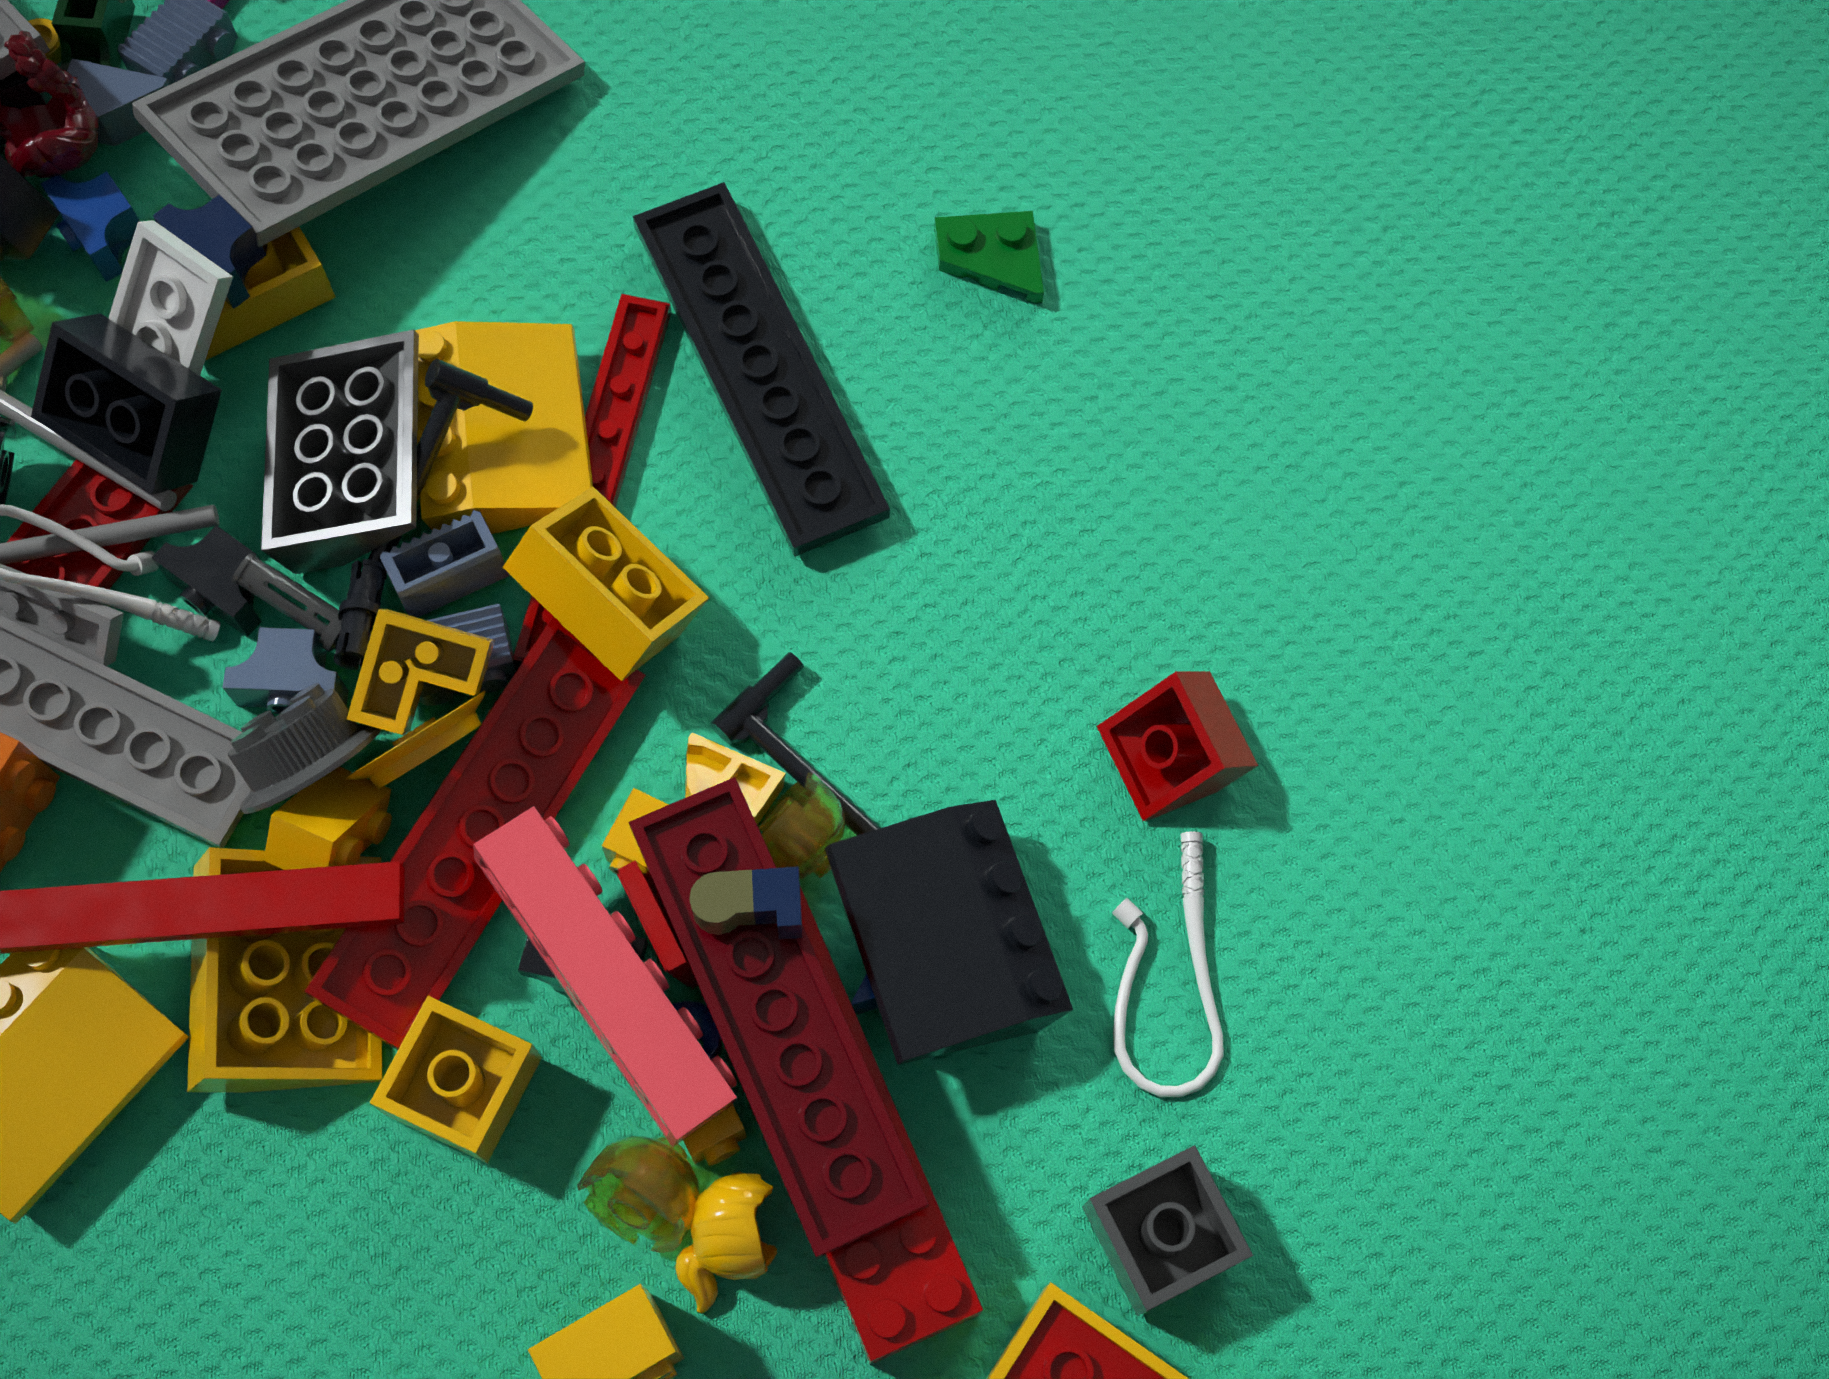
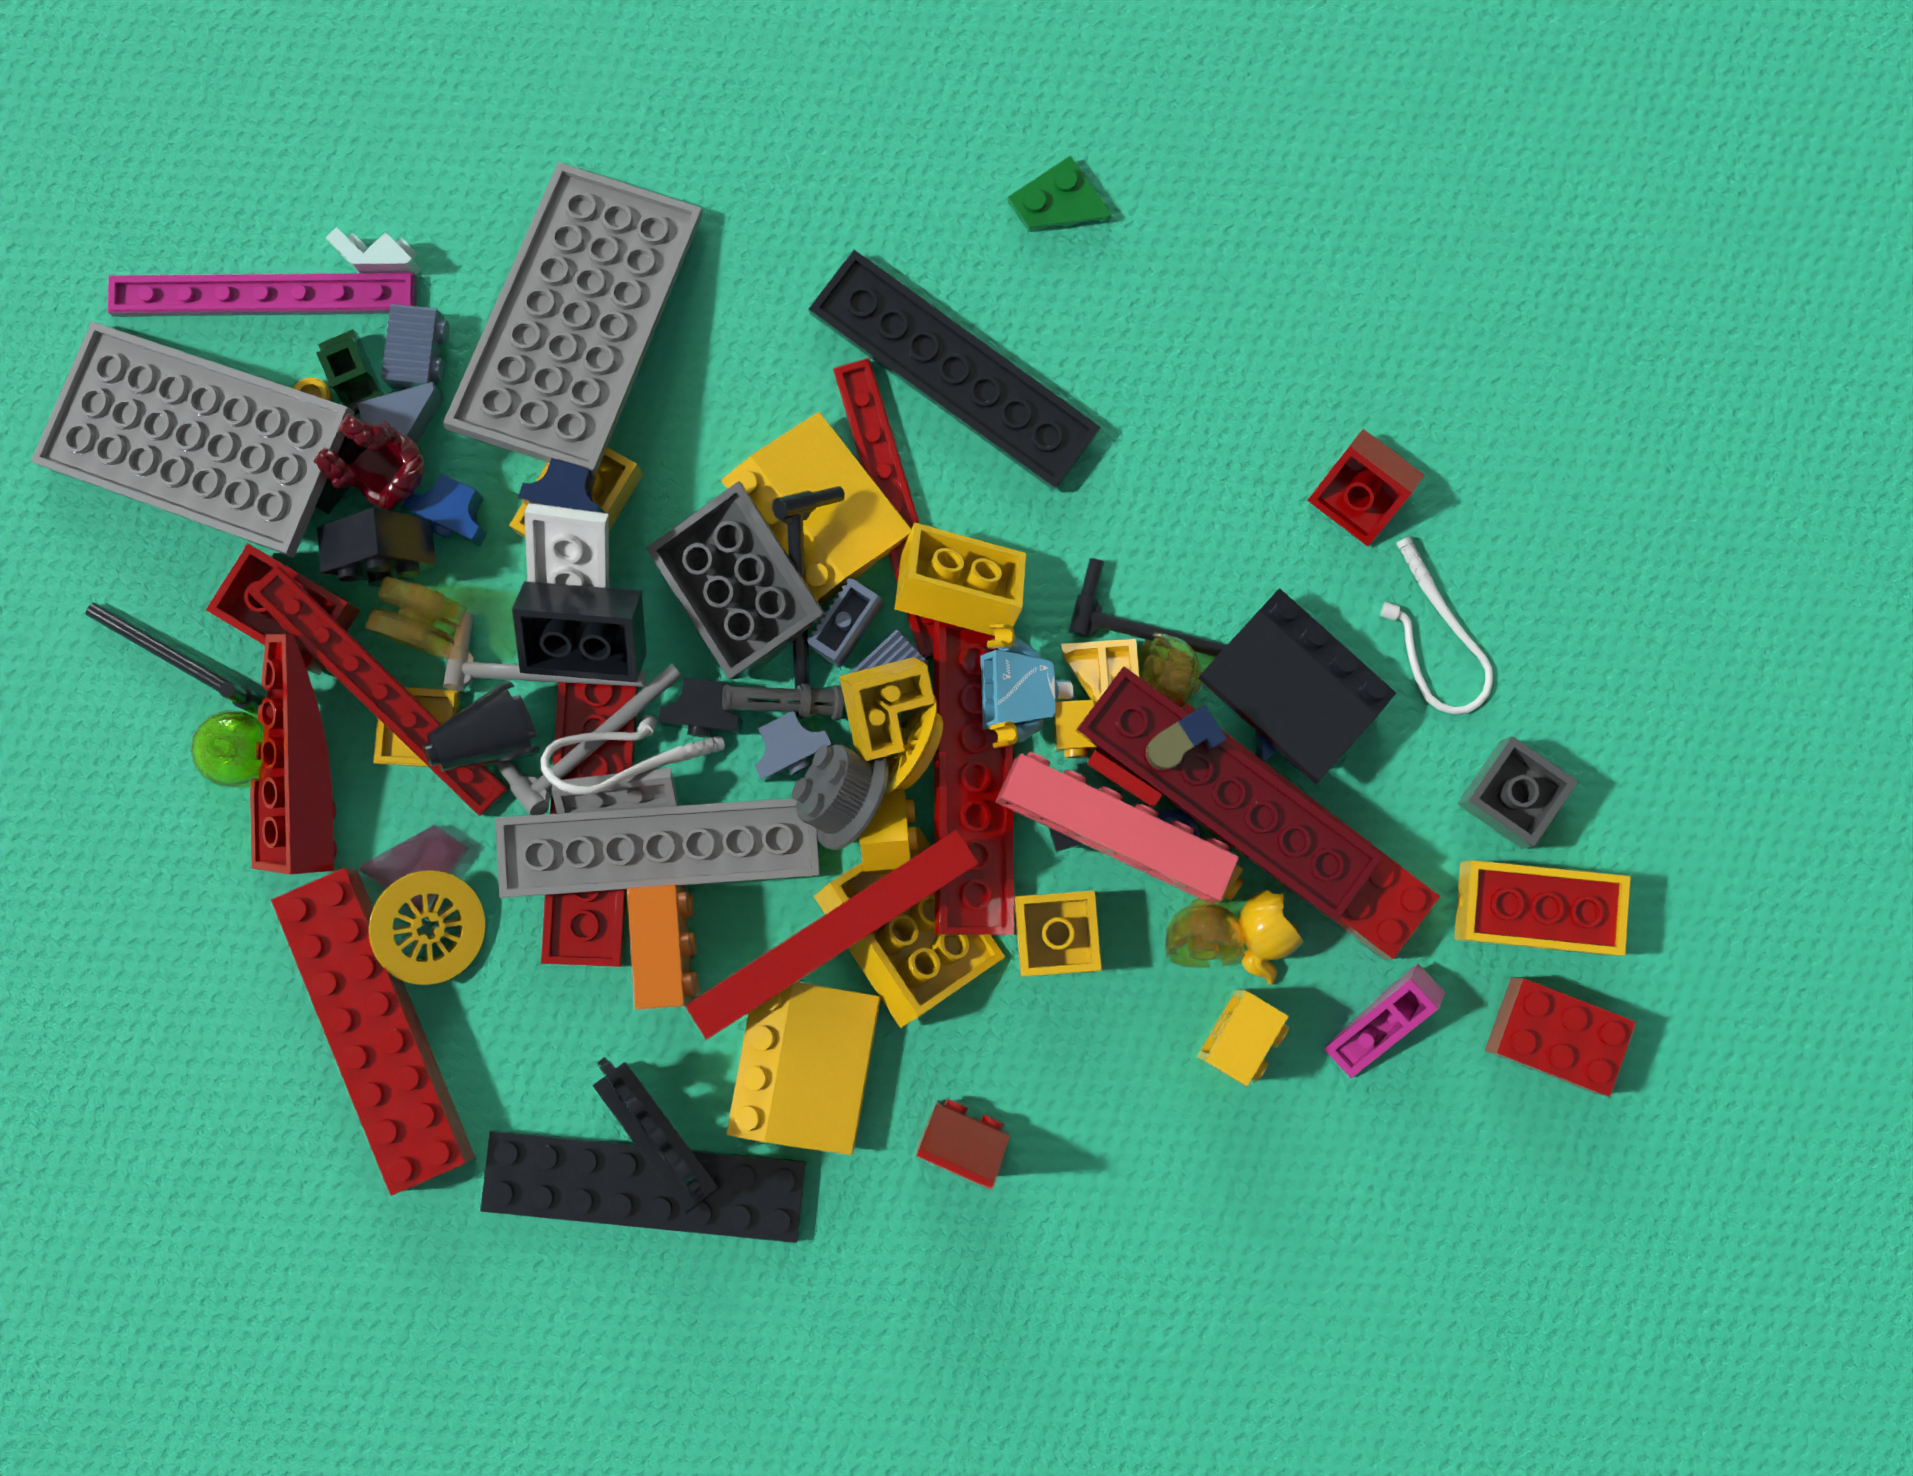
camera: 25 degrees left, 15 degrees up
(149, 1286) = (963, 1143): none -> red slope
(359, 612) = (819, 686): black pin -> none
(598, 745) = (1017, 688): none -> medium azure torso

